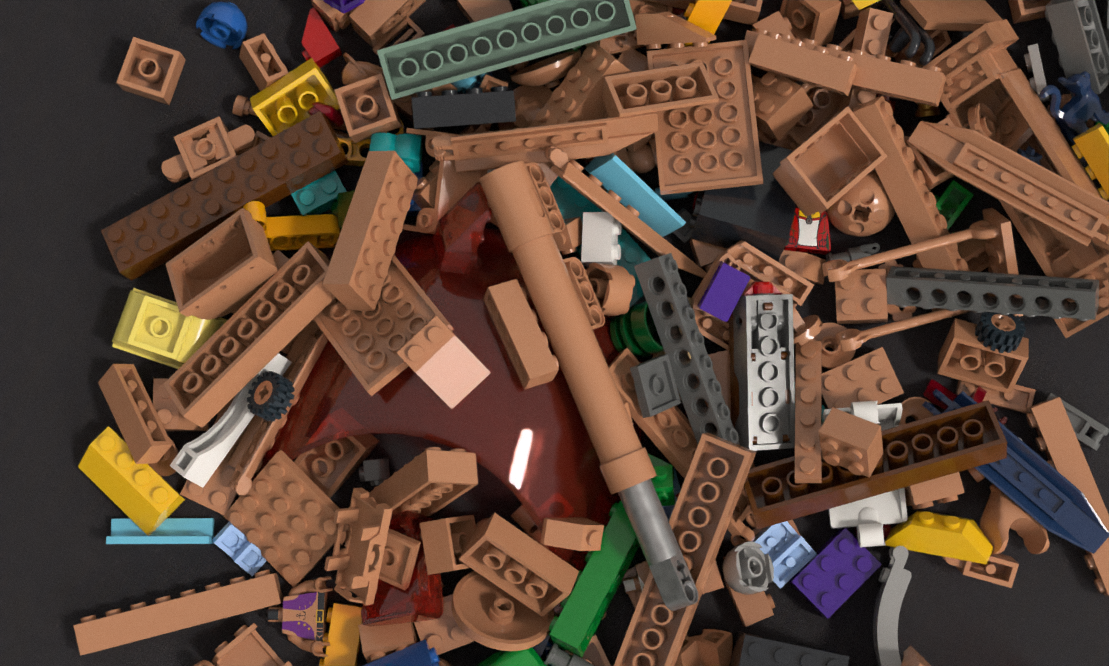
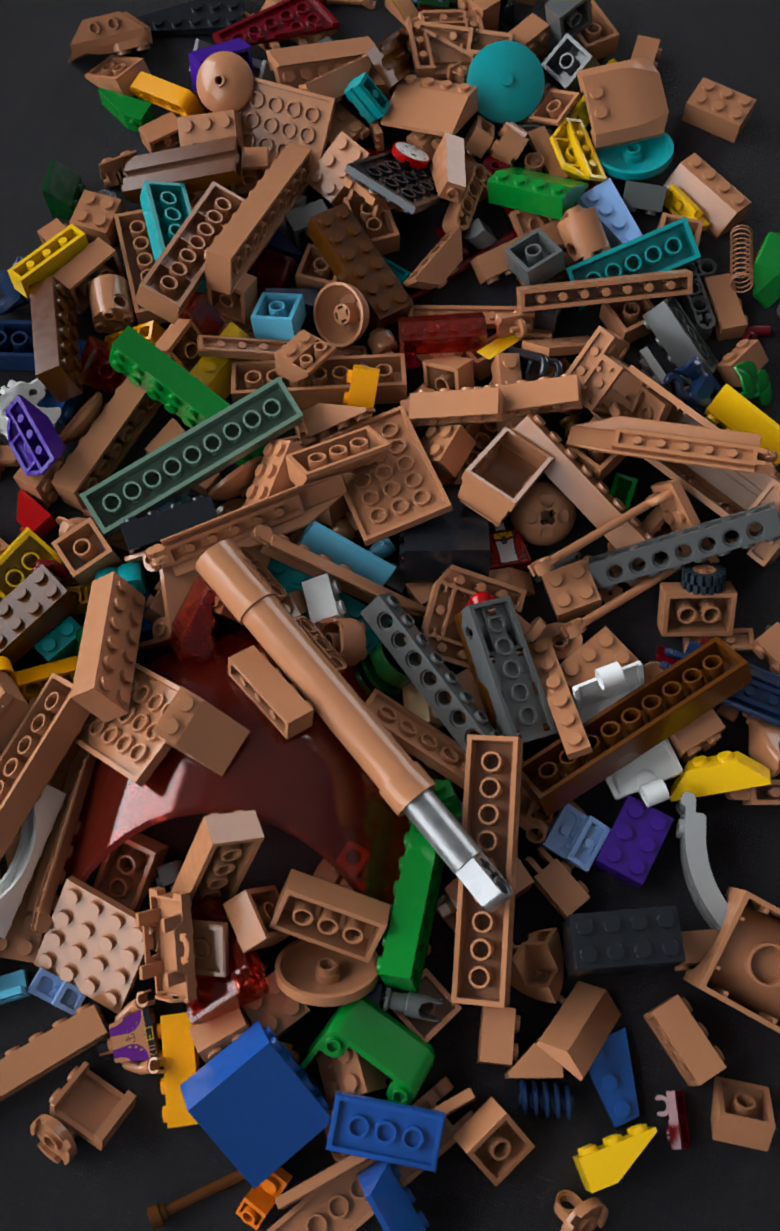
camera: 10 degrees left, 15 degrees down
(270, 396) = (49, 826): black wheel -> none
(572, 533) = (372, 869): nougat slope -> none
(655, 385) = (410, 710): dark grey hinge -> none
(723, 291) = (447, 609): dark purple panel -> none
(748, 568) = (551, 857): light grey cylinder -> none
(851, 442) = (607, 704): nougat brick -> none

